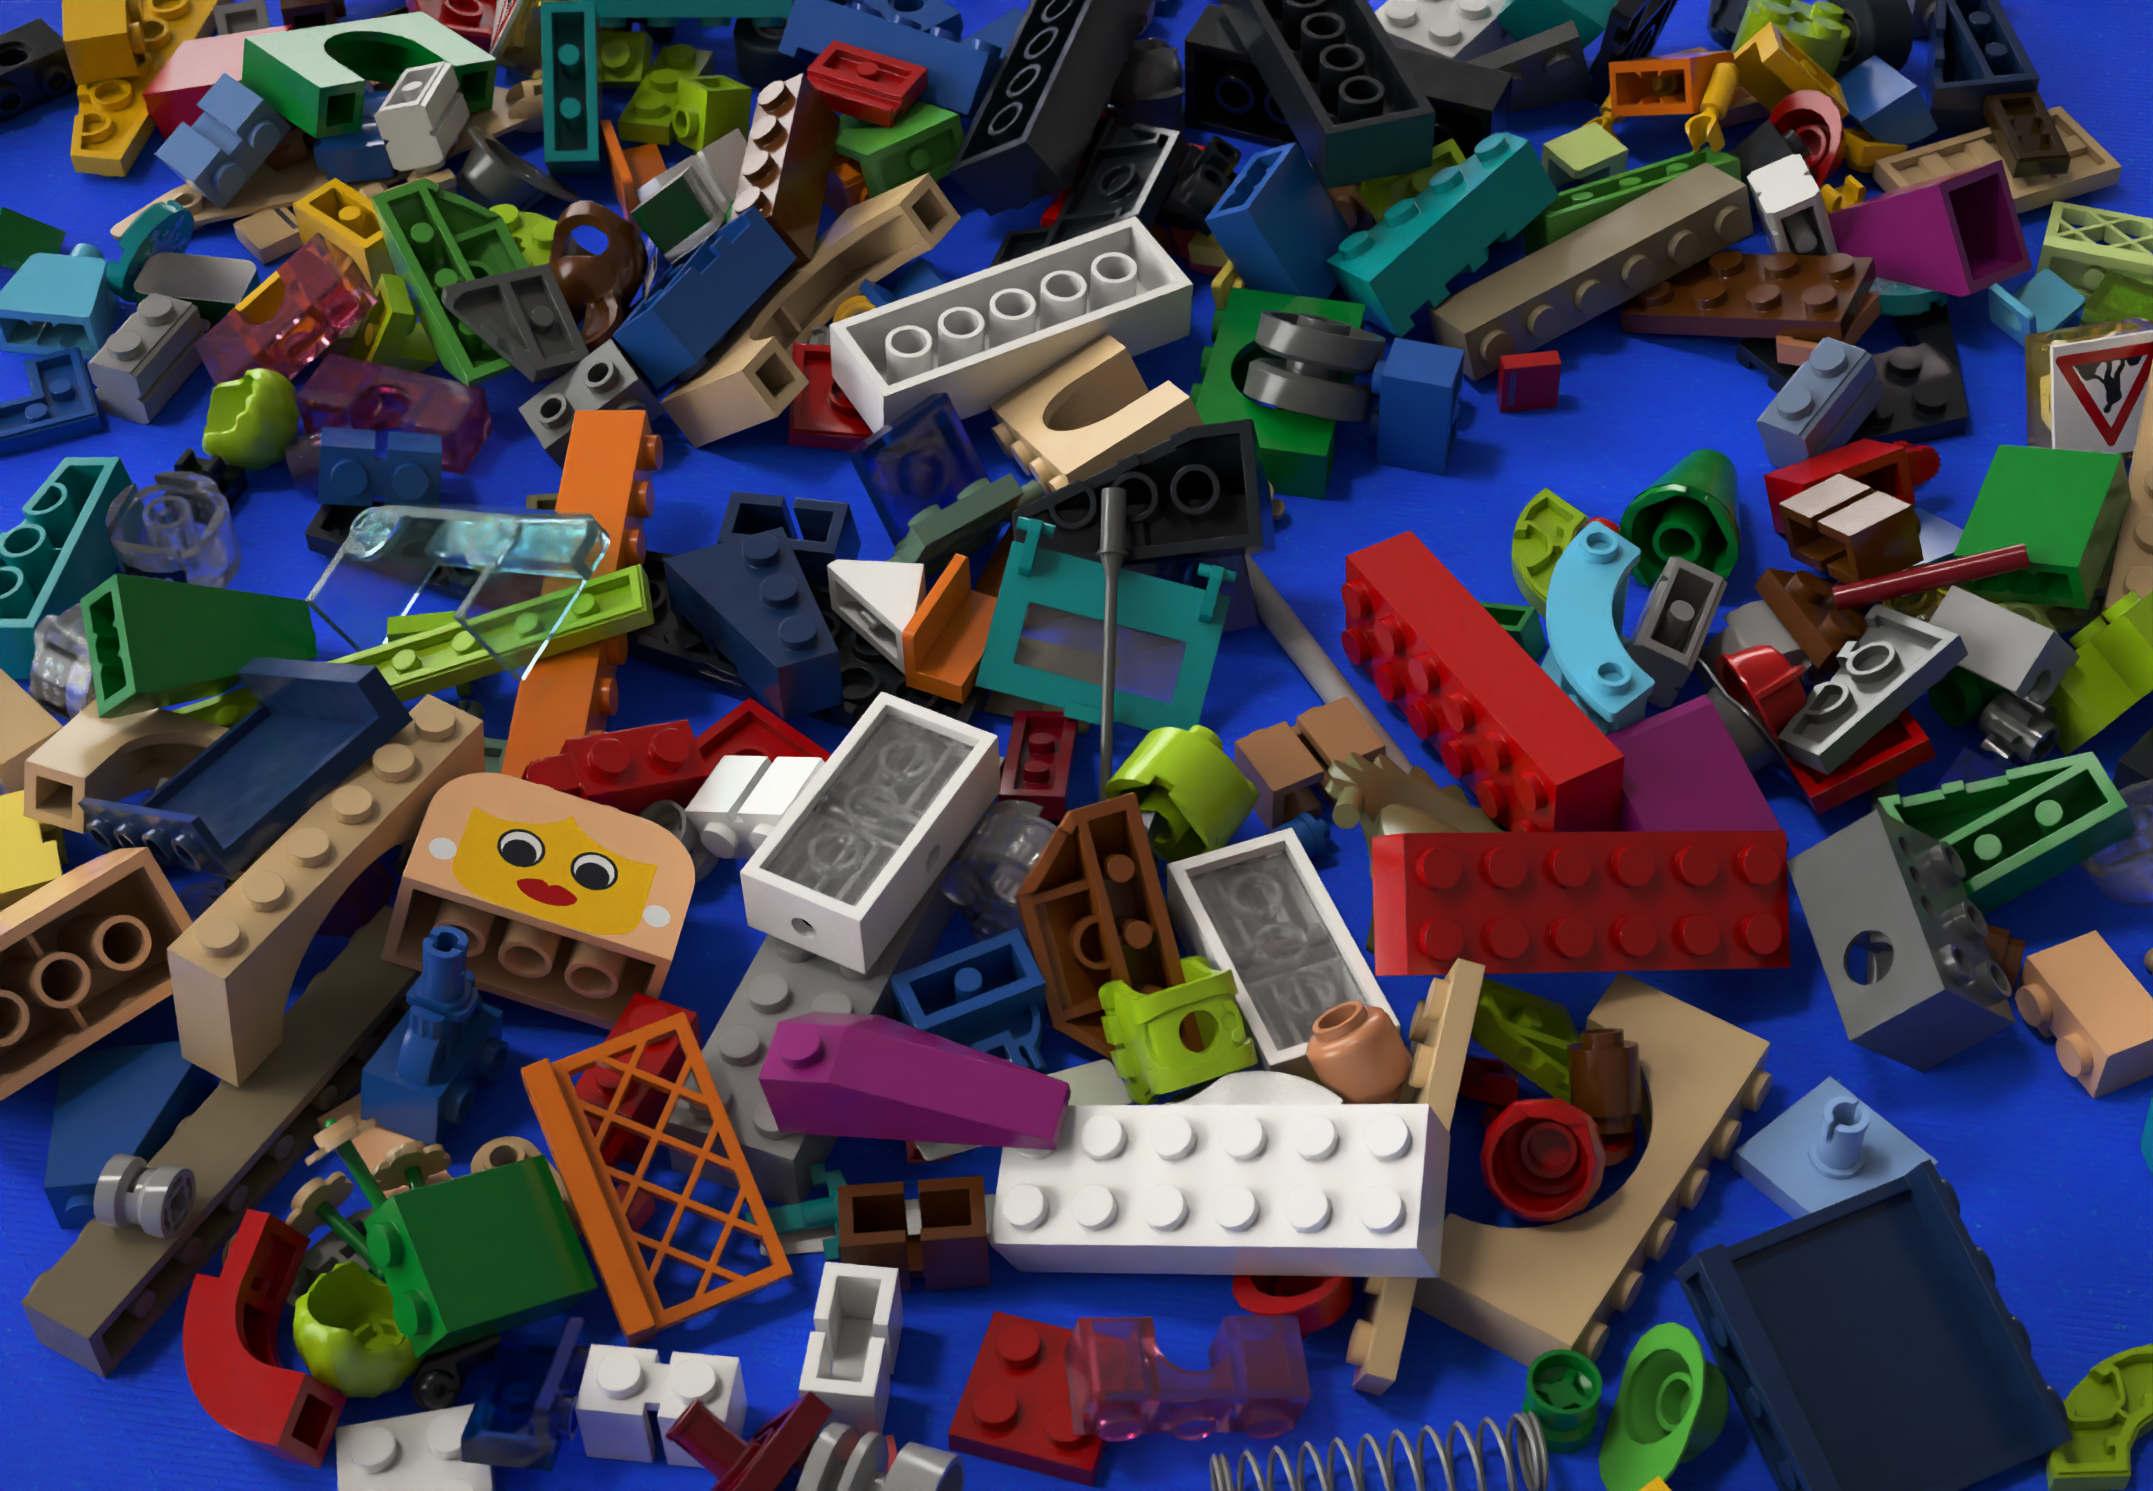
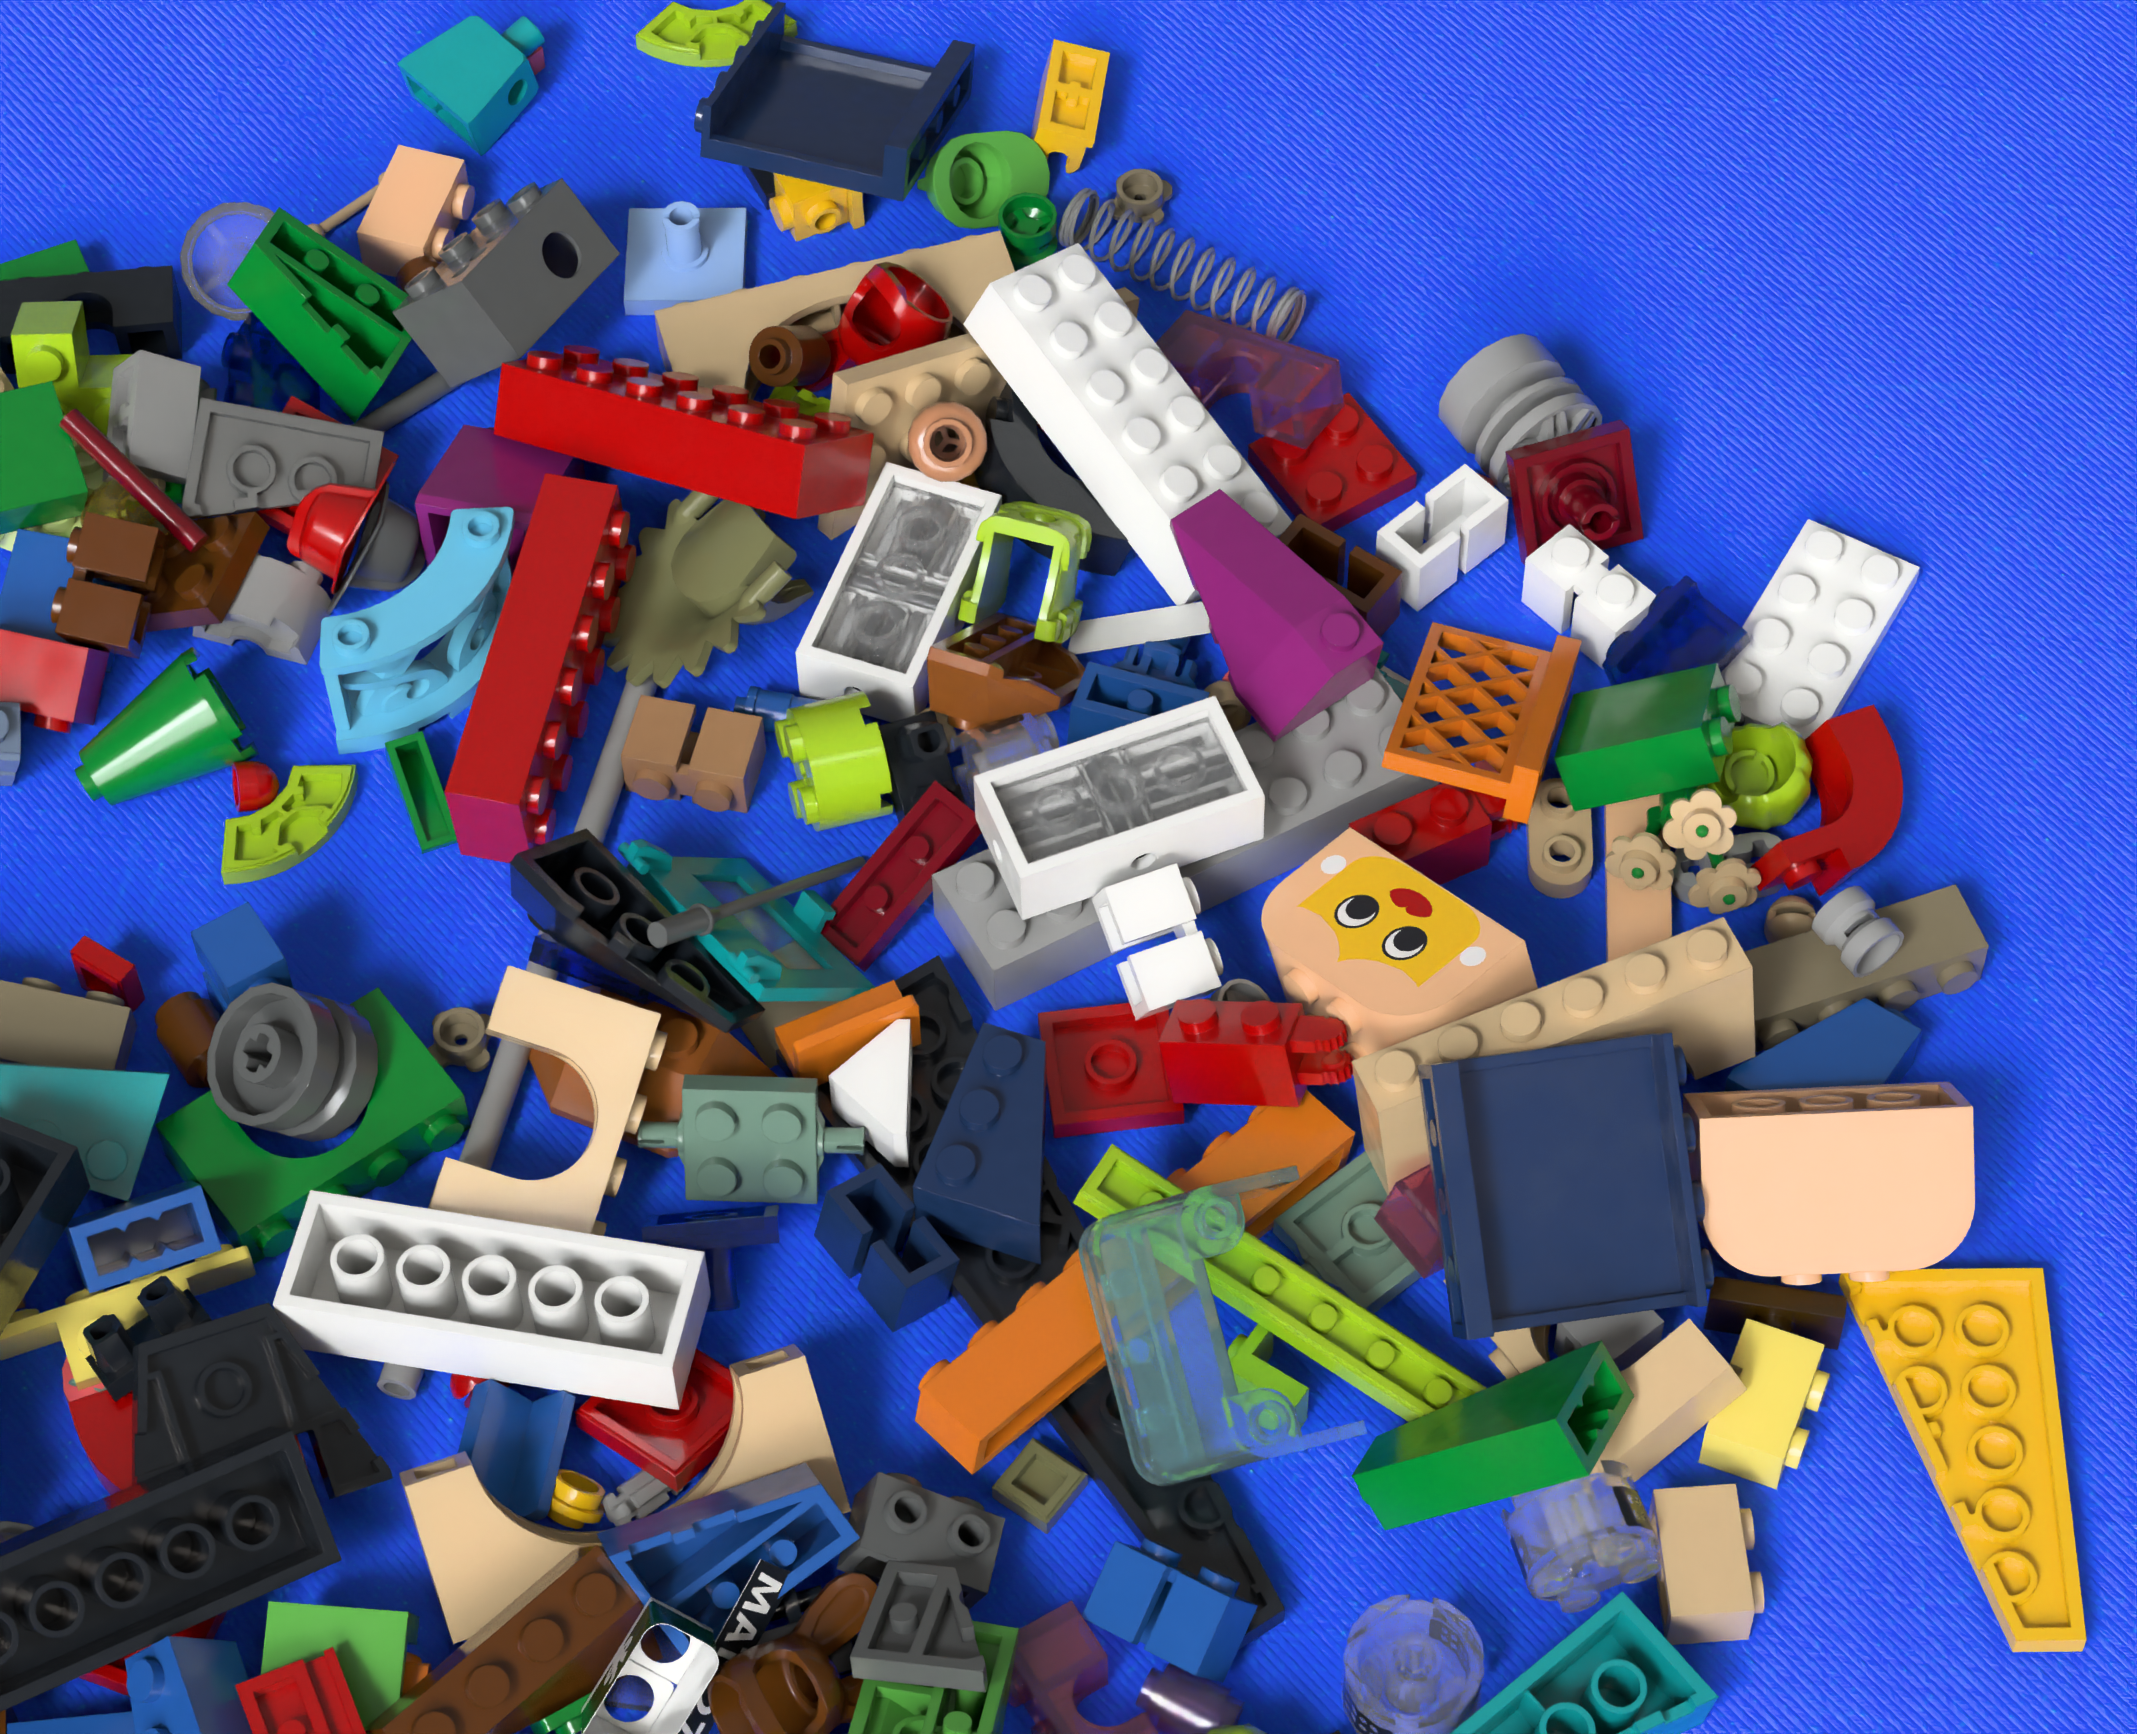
camera: 140 degrees left, 10 degrees up
(439, 1049) = (1564, 919): blue brick -> none
(1675, 626) = (289, 645): light grey brick -> none

